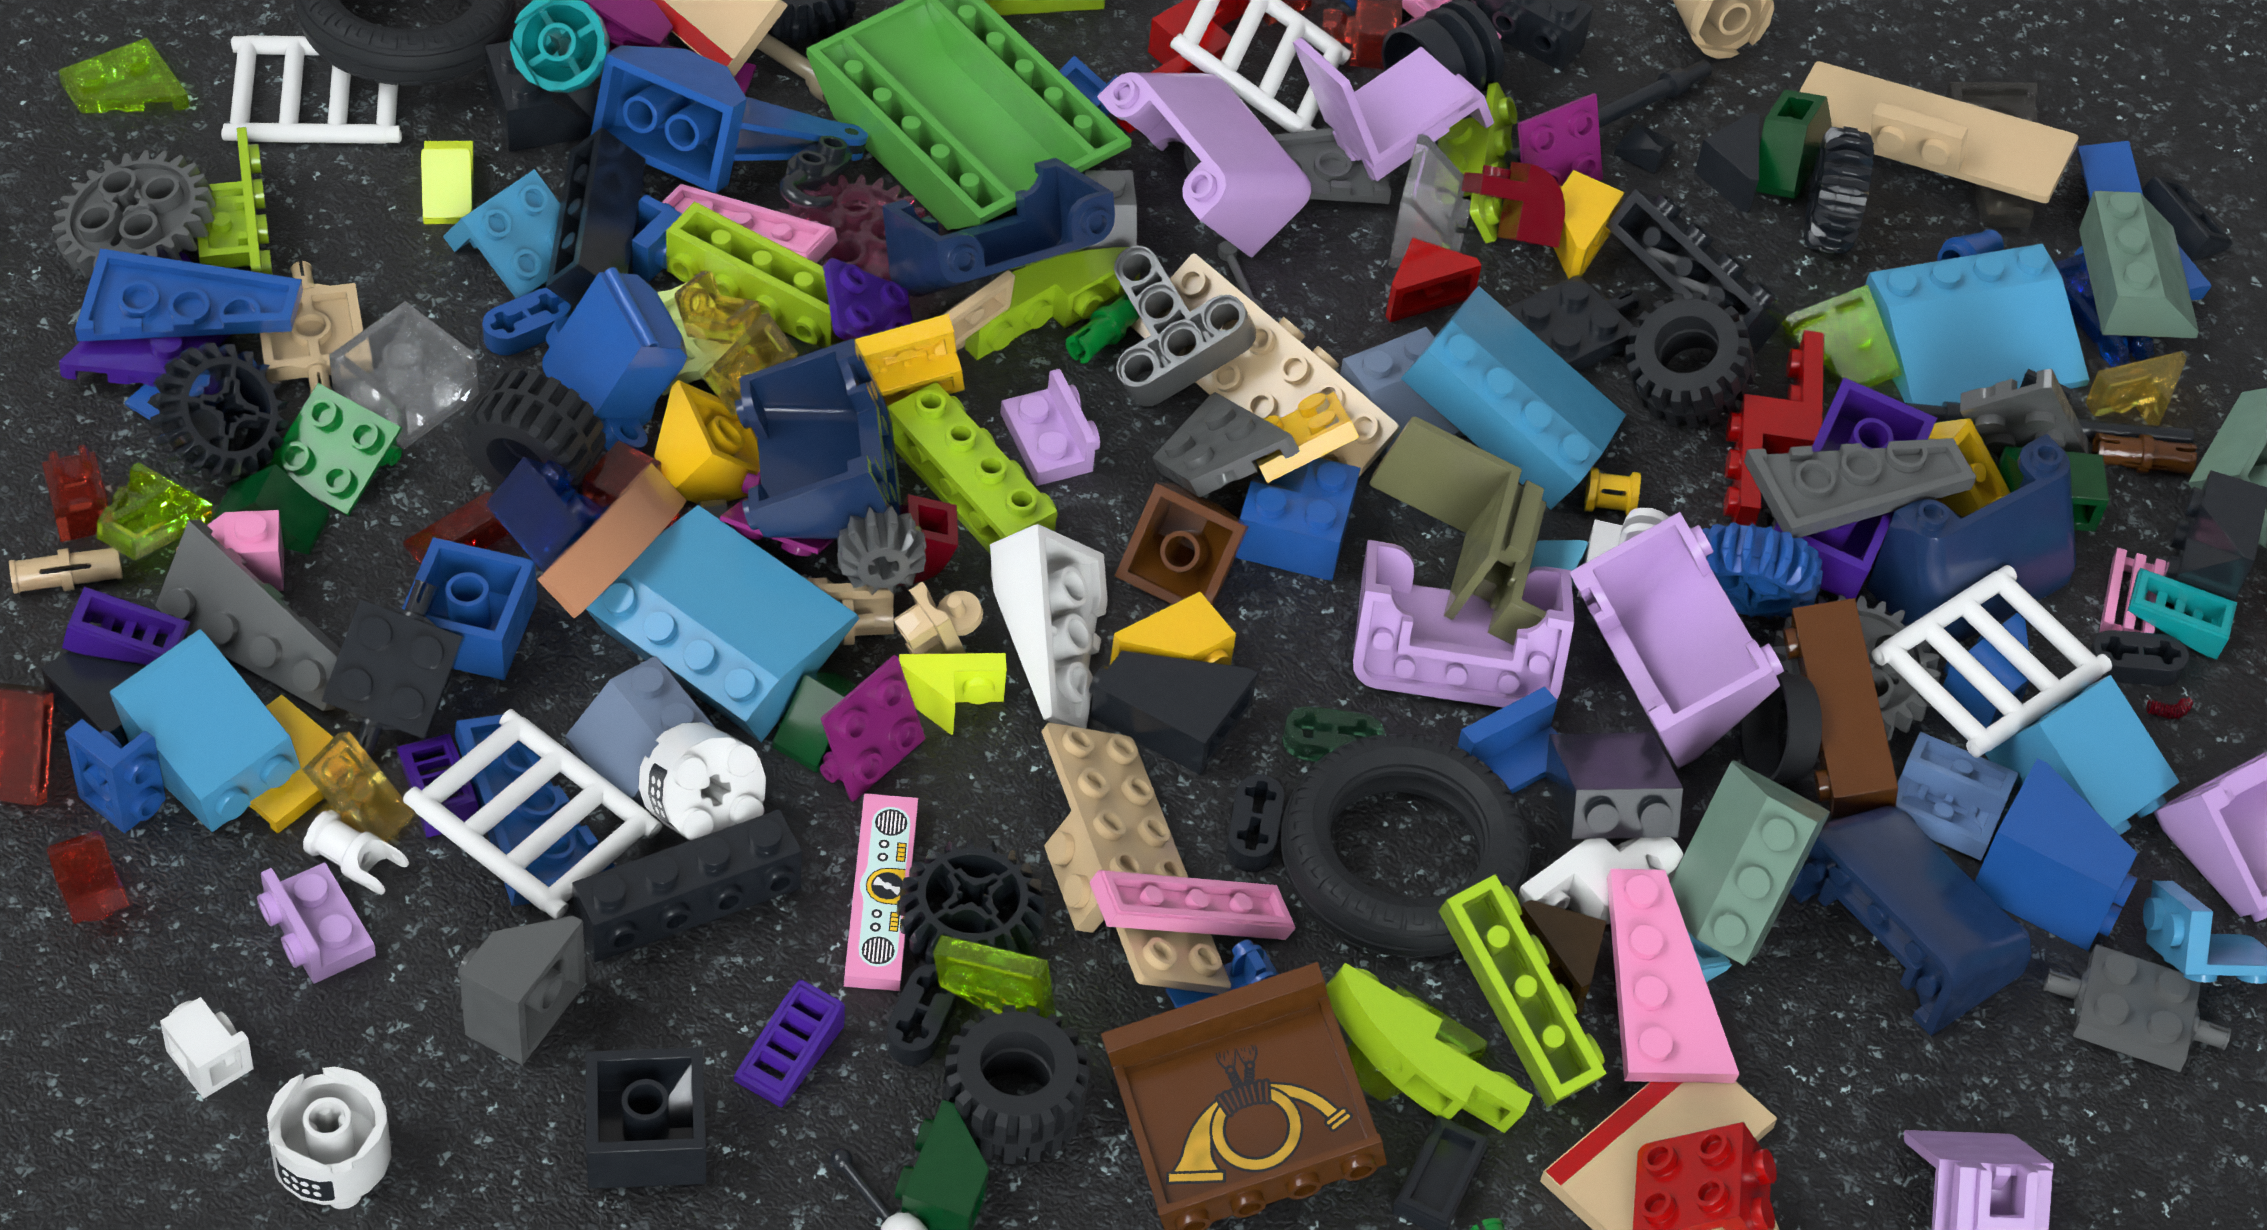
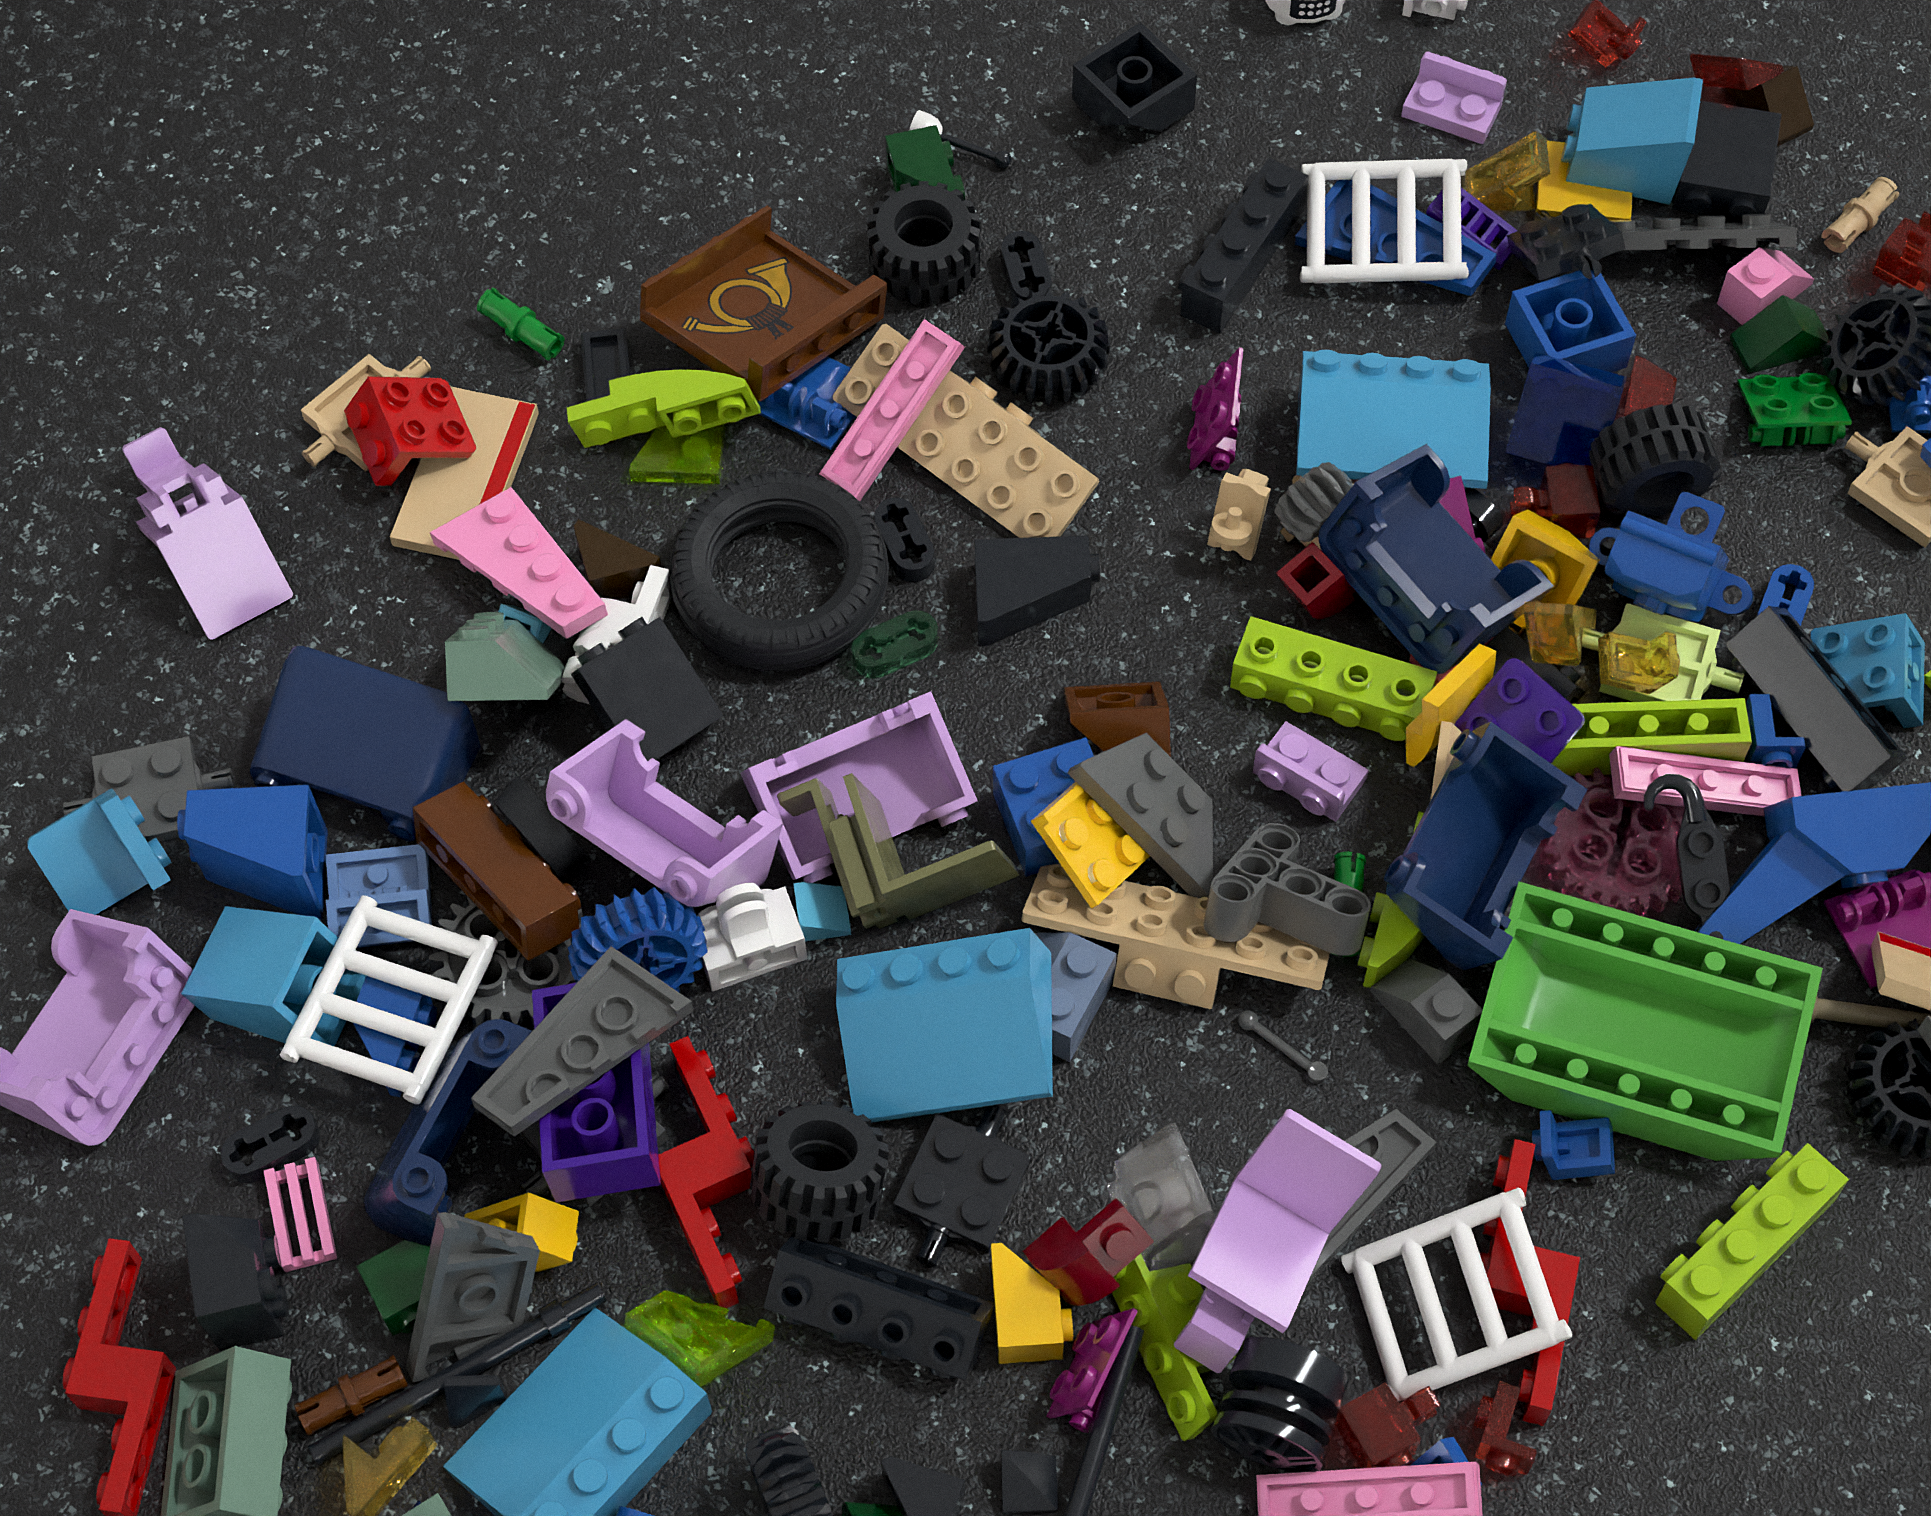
camera: 155 degrees right, 10 degrees up
(111, 611) = (1772, 129): dark purple slope -> none
(115, 779) = (1664, 60): blue bracket -> none
(149, 513) = (1846, 265): clear neon green wing -> none
(350, 849) = (1471, 145): white piece -> none
(406, 372) = (1804, 472): clear slope -> none
(521, 984) = (1281, 101): dark grey slope -> none
(613, 541) = (1508, 408): nougat slope -> none
(627, 720) = (1368, 325): sand blue slope -> none
(702, 780) = (1288, 288): white brick -> none
(802, 731) = (1268, 433): dark green slope -> none
(807, 1011) = (1092, 227): dark purple slope -> none
(882, 863) = (1131, 343): tile -> none
(943, 679) = (1196, 499): neon yellow slope -> none
(993, 976) = (982, 282): clear neon green wing -> none
(1051, 605) = (1175, 601): white wedge -> none
(1182, 631) = (1061, 634): yellow slope -> none
(1245, 178) = (1403, 1099): lavender windscreen -> none
(1430, 280) = (1114, 1134): red slope -> none
(1514, 739) = (750, 717): blue panel -> none
(1522, 990) = (617, 472): lime brick -> none
(1597, 481) = (811, 1010): yellow bush -> none
(2169, 709) = (222, 1112): dark red leg -> none
(2210, 617) = (224, 1192): teal slope -> none

